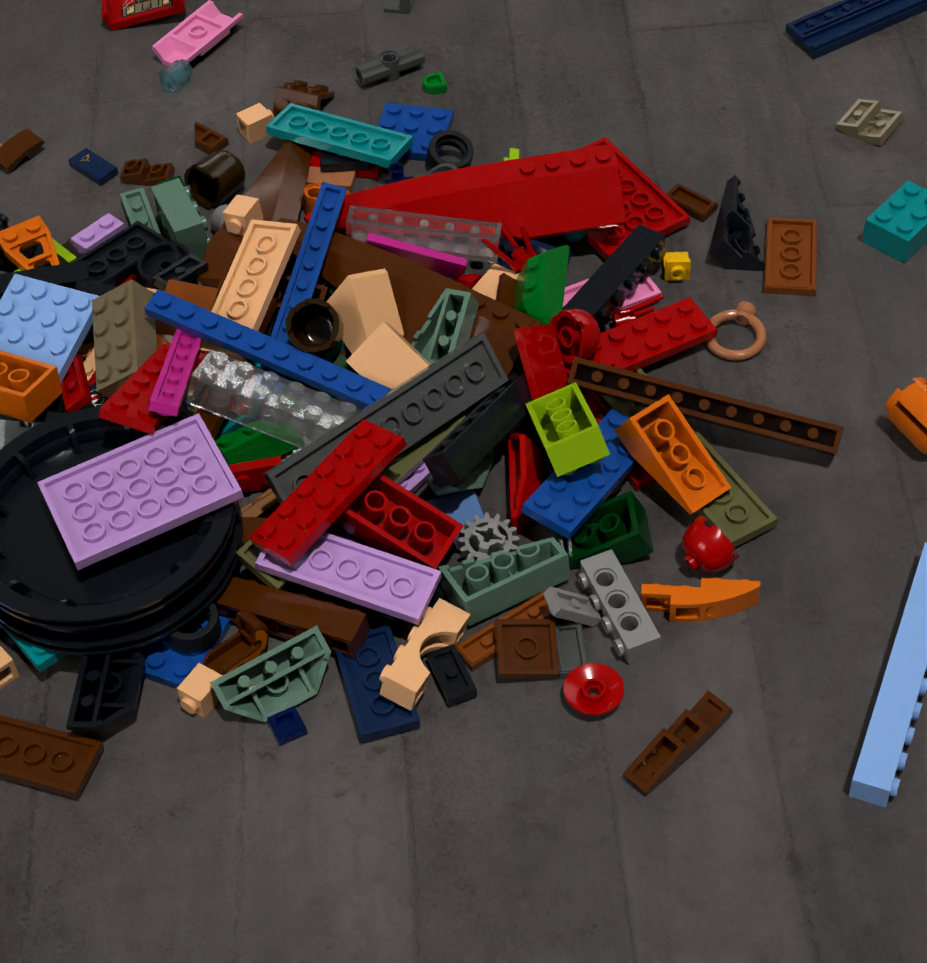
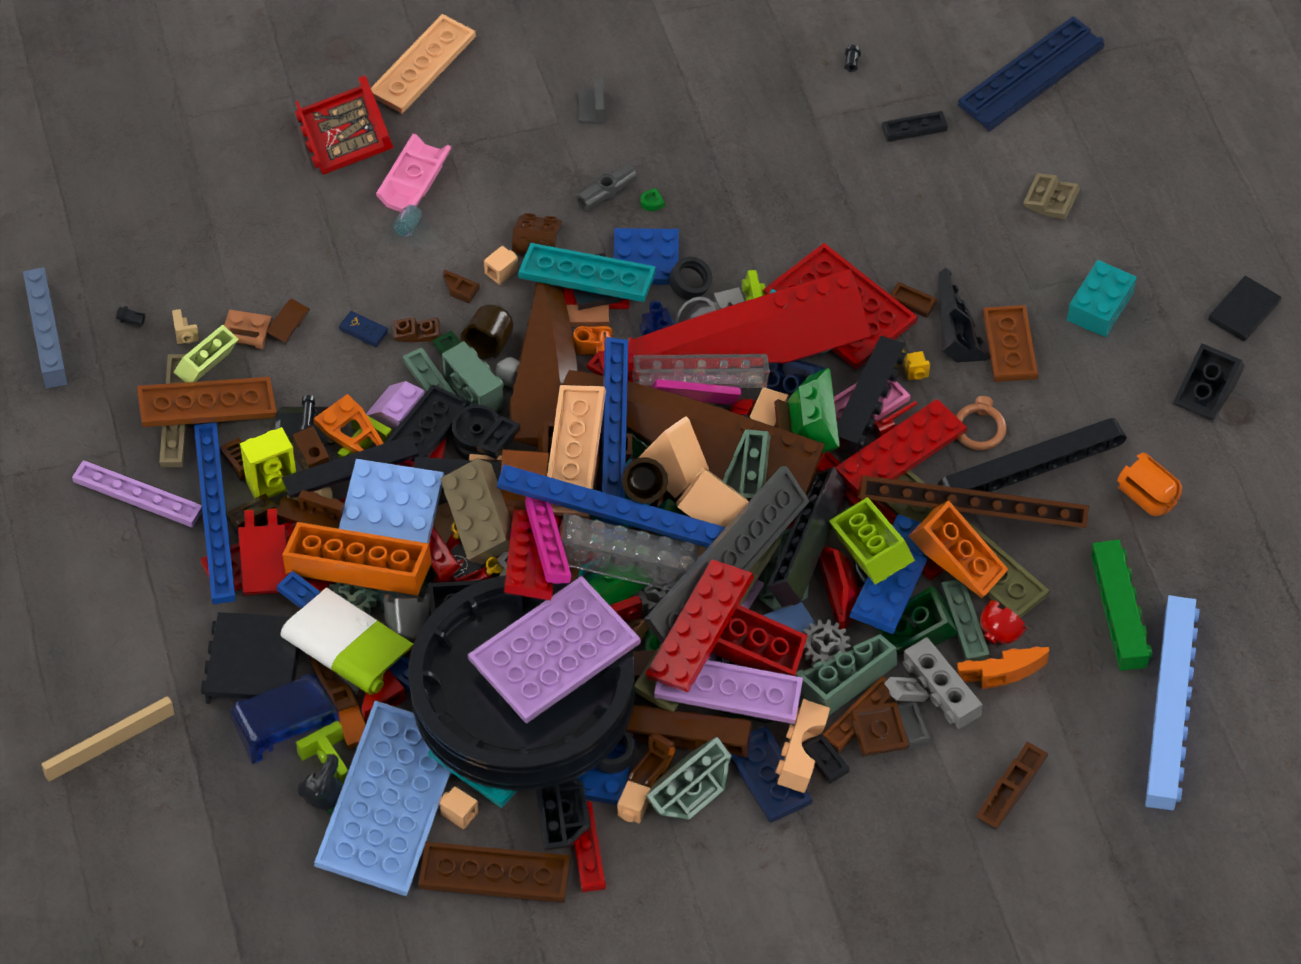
camera: 15 degrees left, 5 degrees up
(129, 744) = (589, 857): none -> red tile
(240, 212) = (535, 372): light nougat brick -> none
(287, 726) = (708, 819): clear blue tile -> none
(520, 254) = (787, 380): red plant -> none
(541, 359) = (833, 481): red tile -> none
(576, 333) = (854, 452): red cylinder -> none
(593, 679) = (939, 745): red dish -> none
(666, 539) = (965, 620): none -> sand green plate
(734, 45) = (914, 126): none -> black tile
(804, 373) = (1039, 458): none -> black beam
(862, 549) = (1120, 605): none -> green brick

